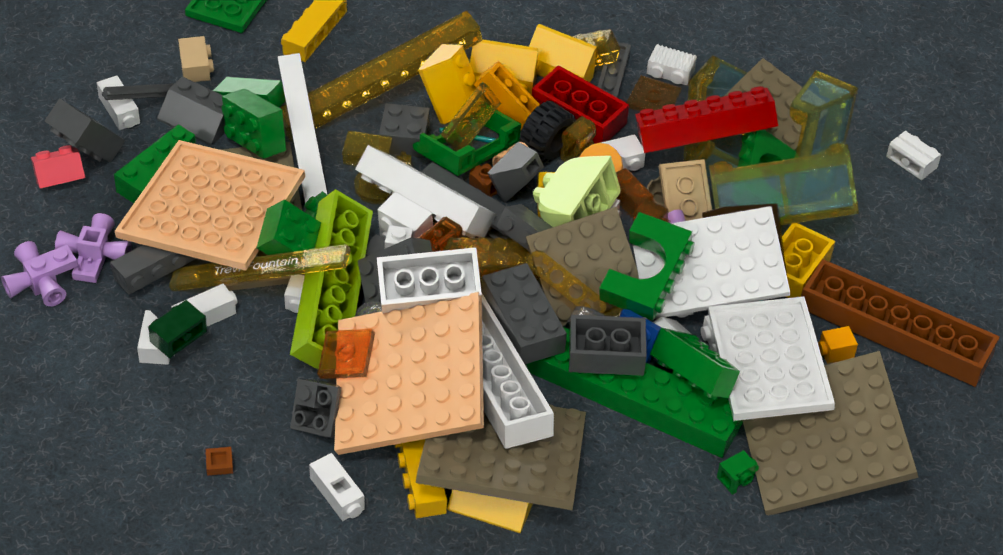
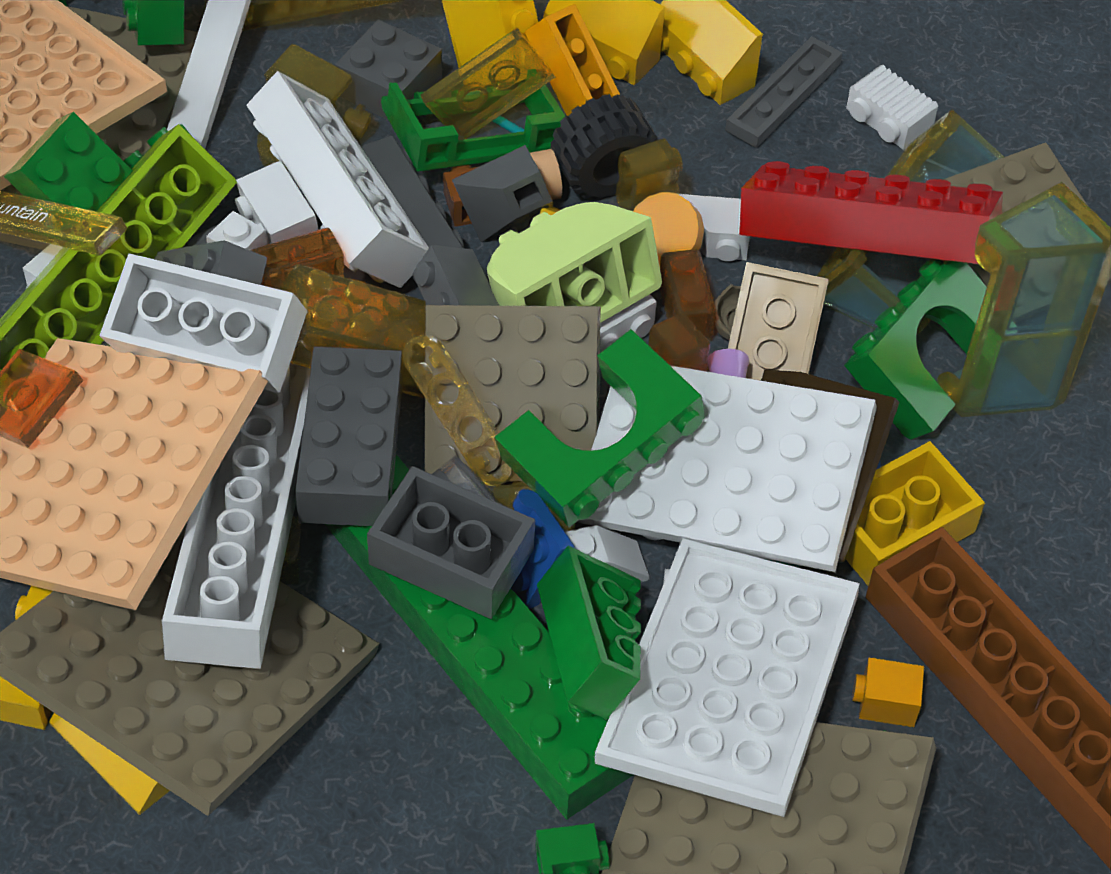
camera: 25 degrees right, 5 degrees up
(583, 100) = (697, 119): red brick -> none
(606, 43) = (785, 38): clear yellow brick -> none
(652, 94) = (833, 144): clear orange tile -> none
(801, 186) = (951, 382): windscreen -> none

